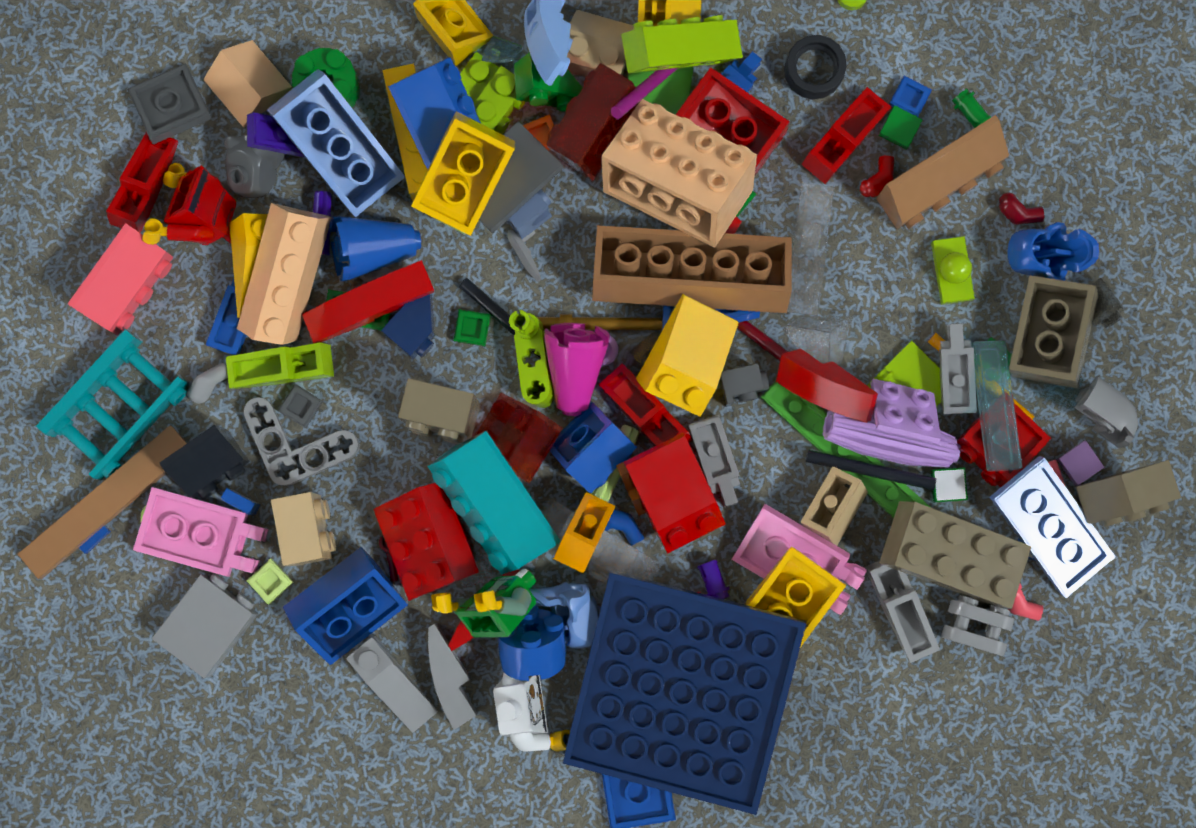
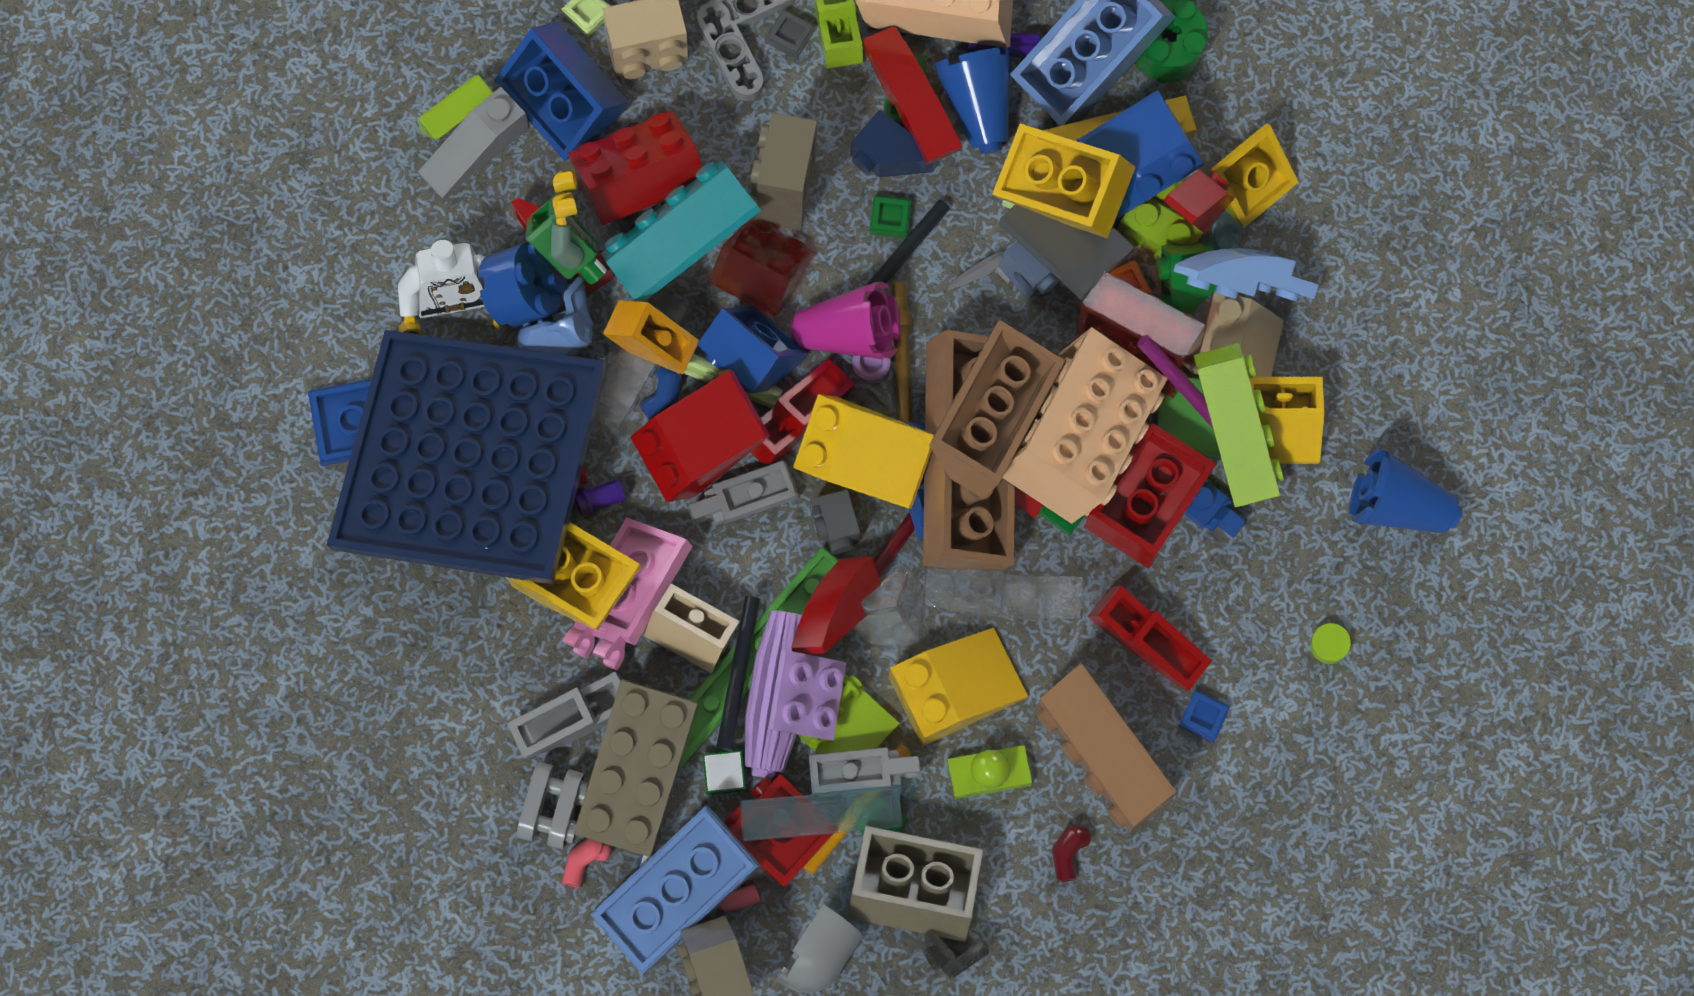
camera: 85 degrees right, 10 degrees down
(360, 698) = (453, 108): none -> lime slope
(448, 676) = (480, 204): light grey slope -> none
(483, 61) = (1201, 199): none -> red slope
(528, 339) = (834, 280): lime beam -> none
(671, 238) = (994, 409): none -> medium nougat slope
(821, 43) = (1240, 570): black tyre -> none
(876, 183) = (1110, 687): red arm -> none
(883, 292) = (956, 685): none -> yellow slope
(900, 127) = (1165, 705): green tile -> none
(970, 108) = (1194, 788): green pin -> none
(1051, 251) = (1015, 879): blue head -> none
(1080, 463) = (757, 932): lavender tile -> none

